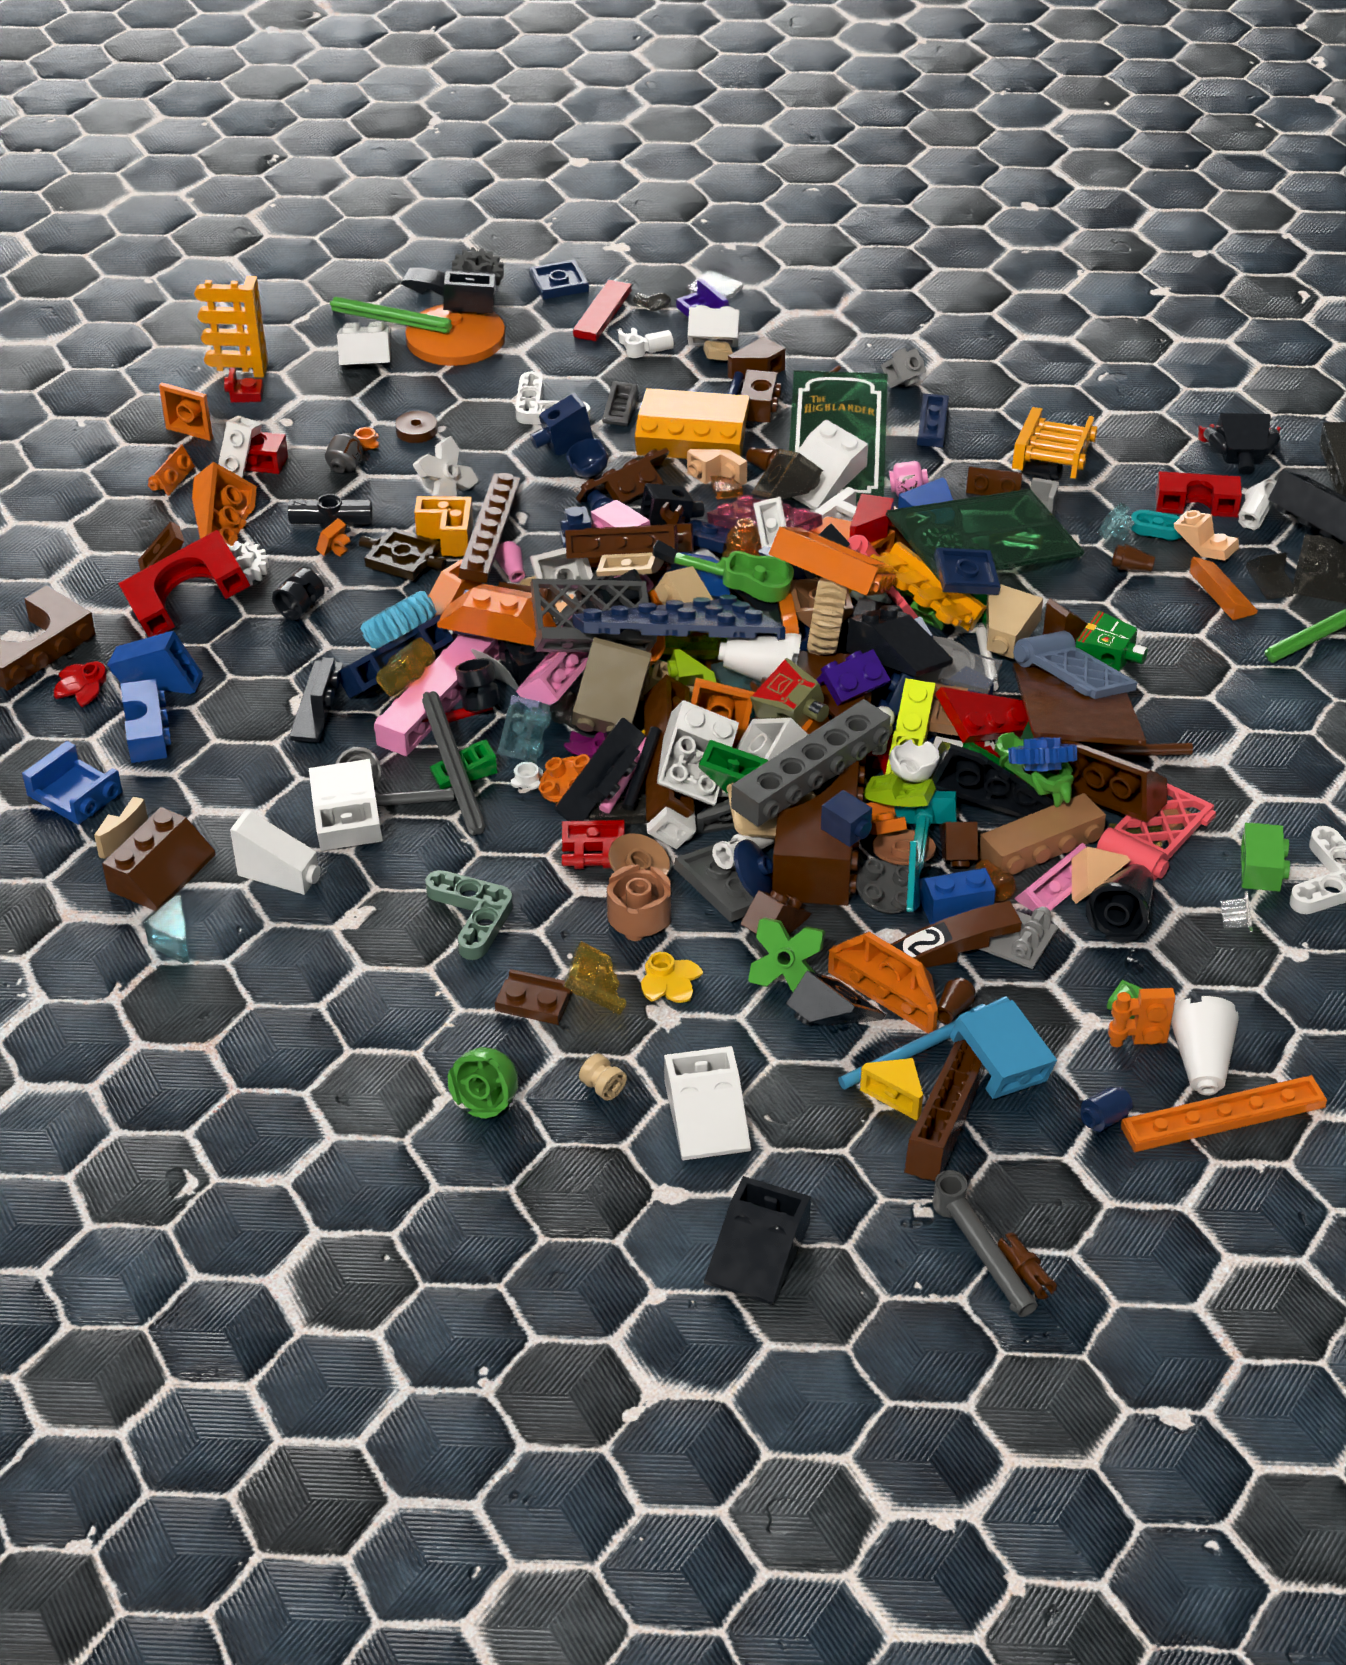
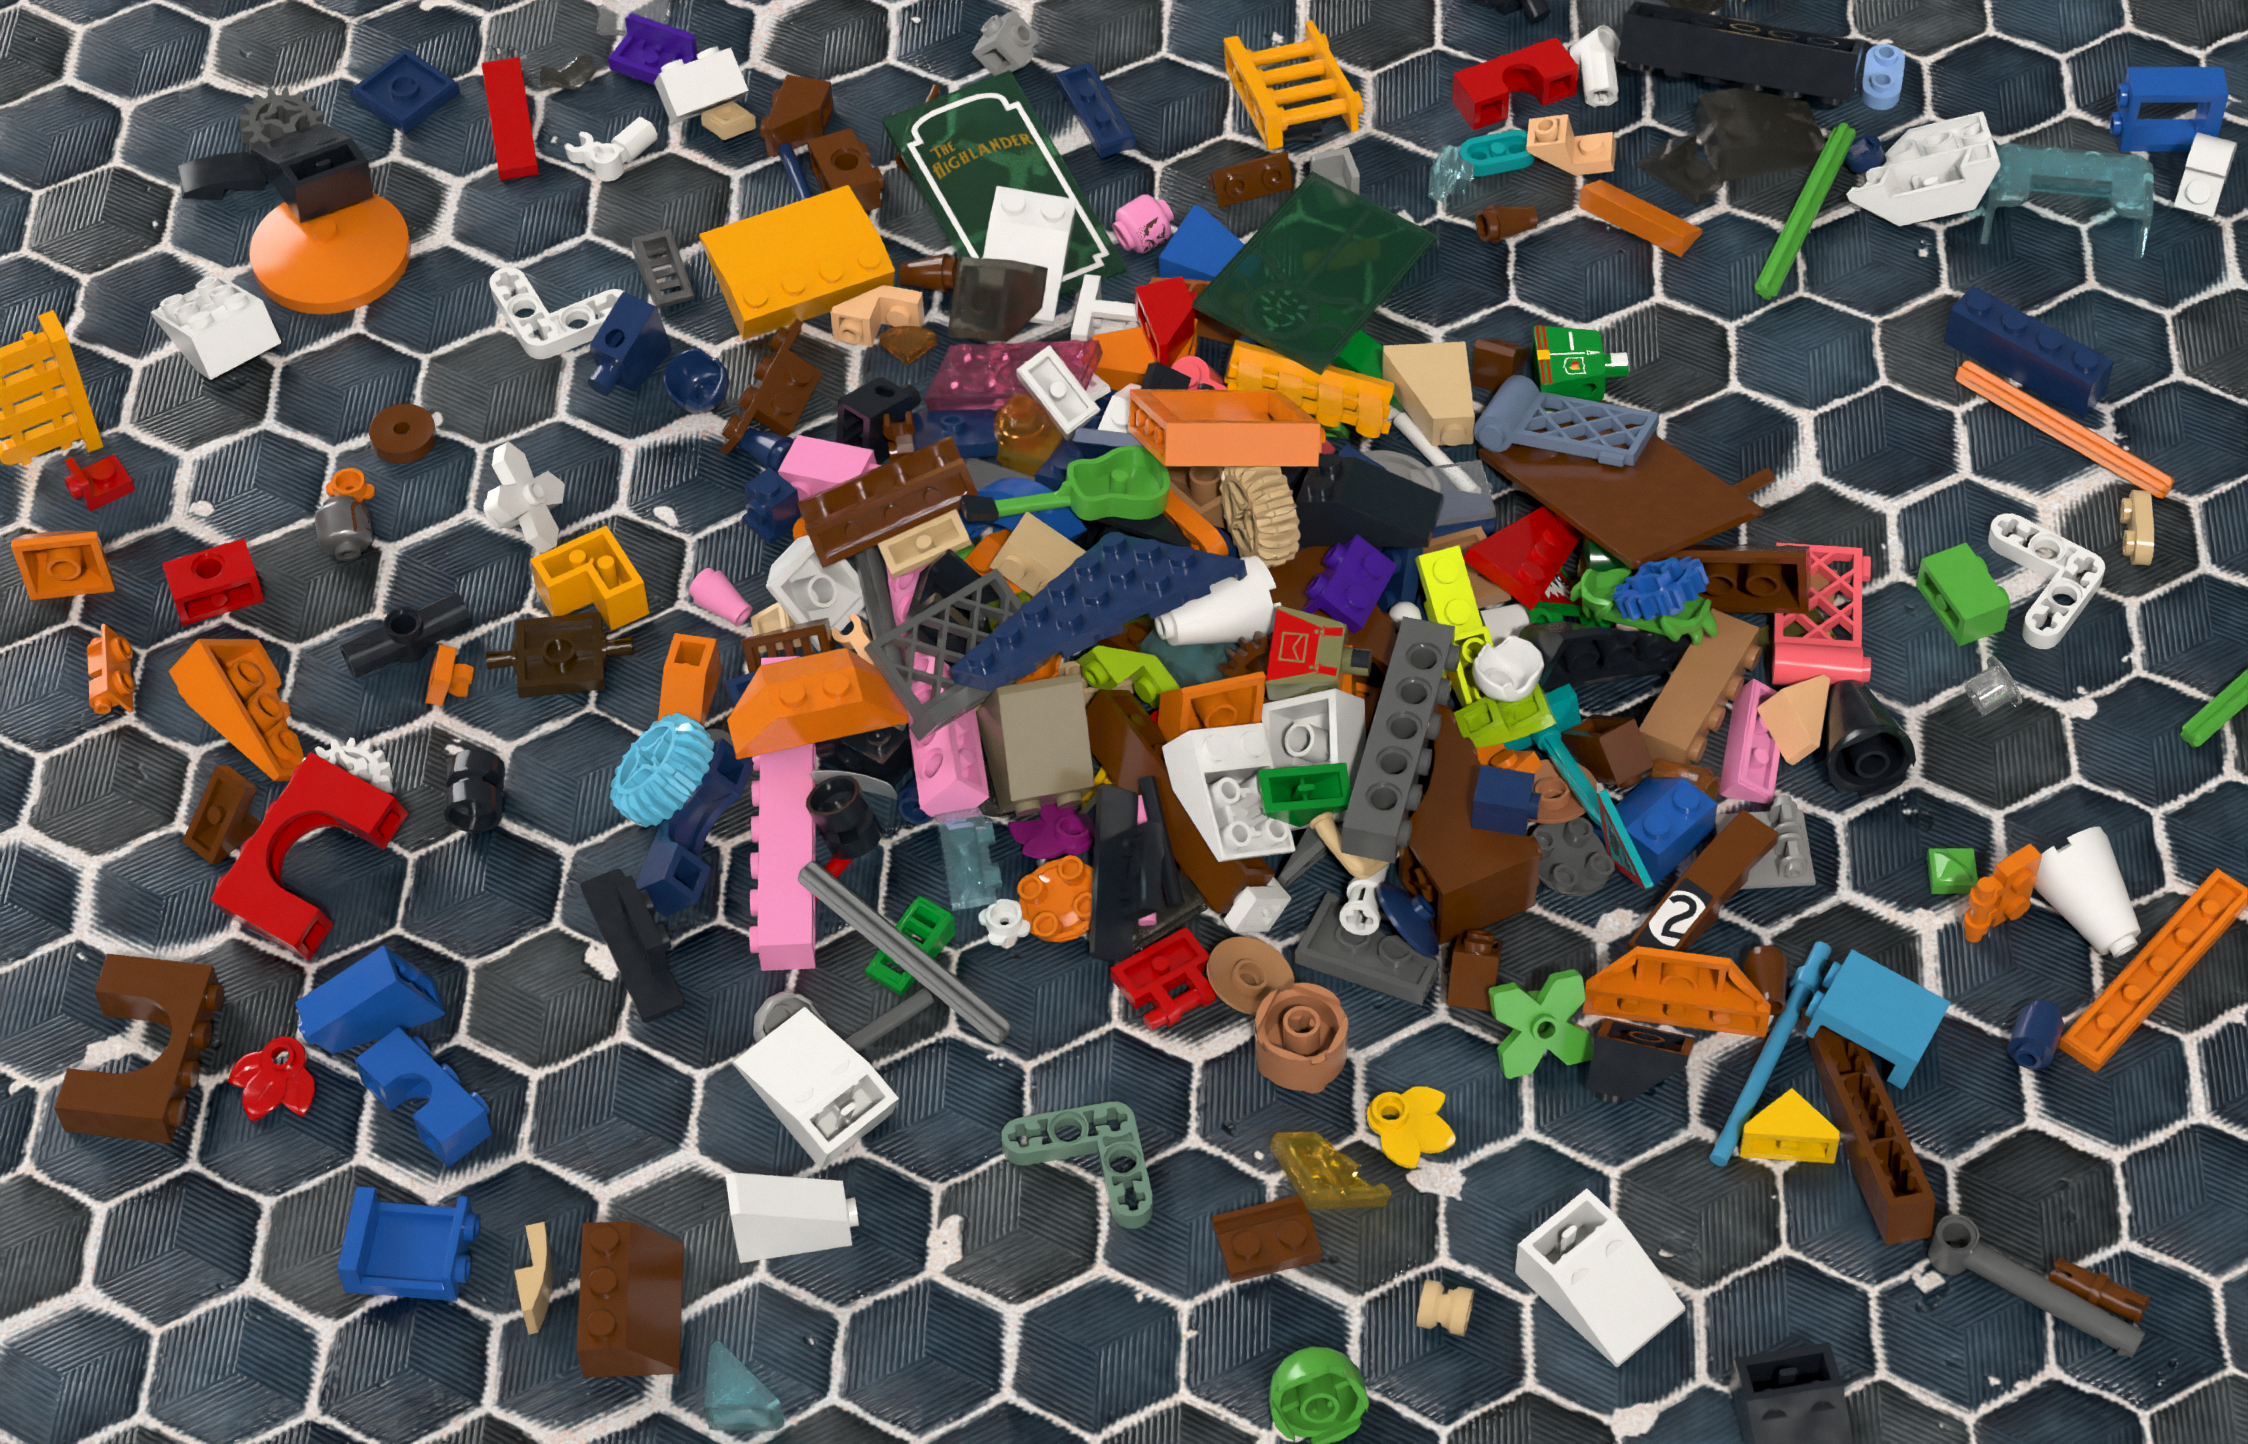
camera: 30 degrees left, 10 degrees up
(237, 443) = (191, 588): white bracket -> none
(391, 314) = (220, 261): bright green axle -> none
(405, 666) = (731, 838): clear yellow brick -> none
(489, 528) = (663, 562): plate -> none
(967, 571) = (1351, 347): dark blue tile -> none

